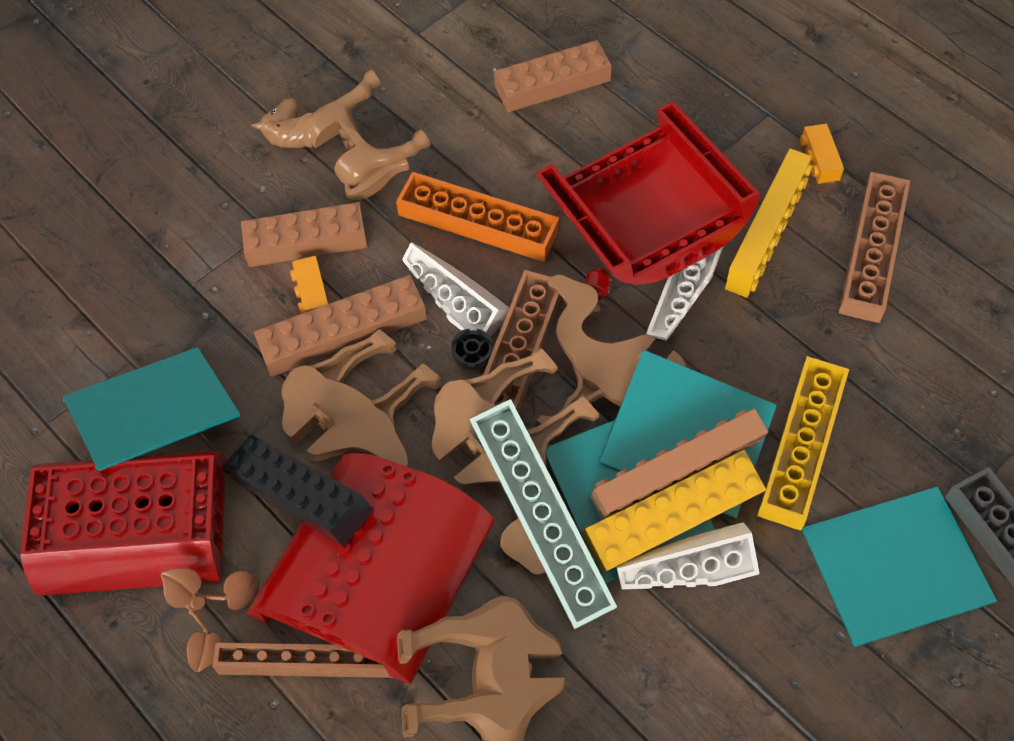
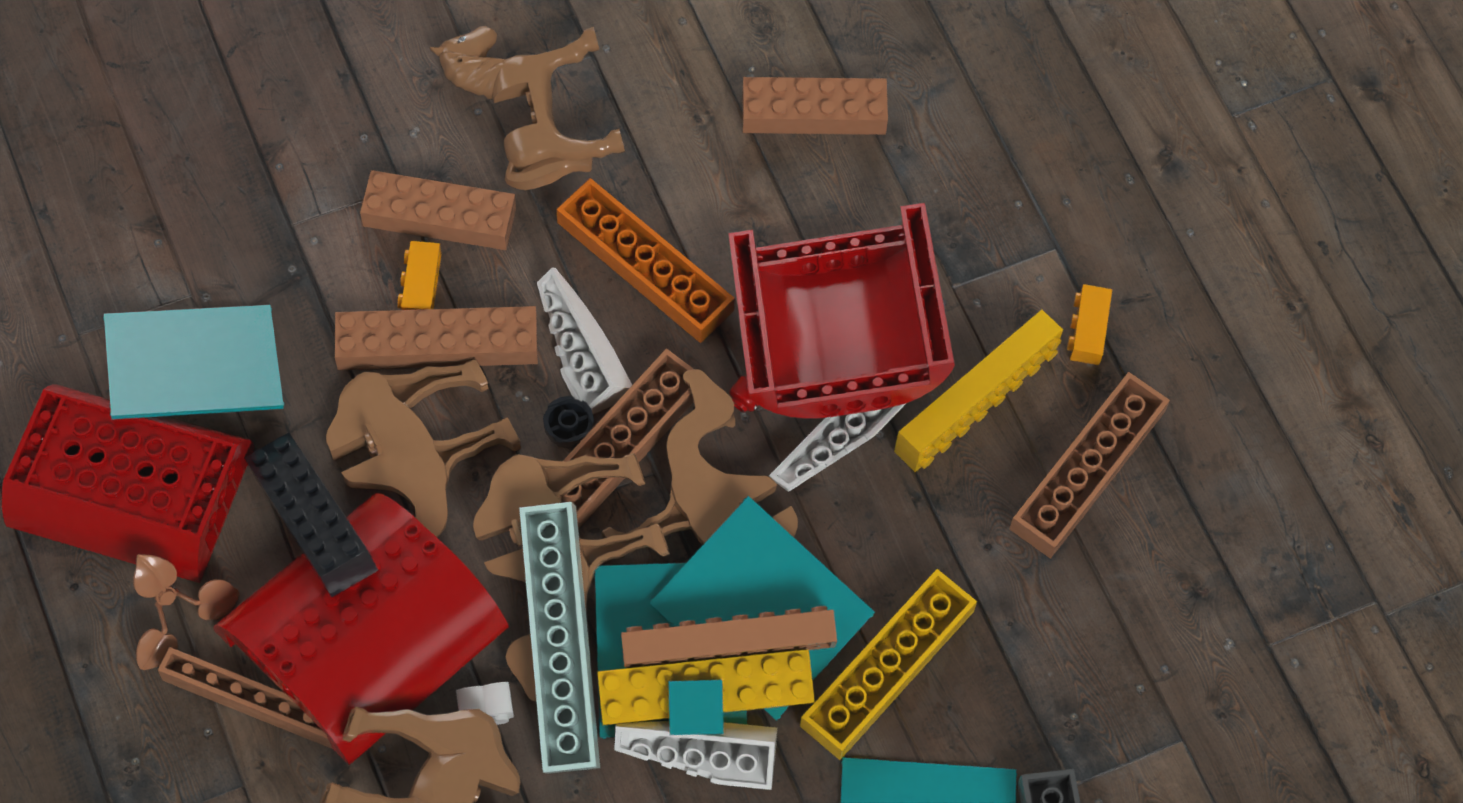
camera: 15 degrees right, 5 degrees up
(502, 584) = (491, 699): none -> white brick
(677, 528) = (696, 707): none -> teal tile

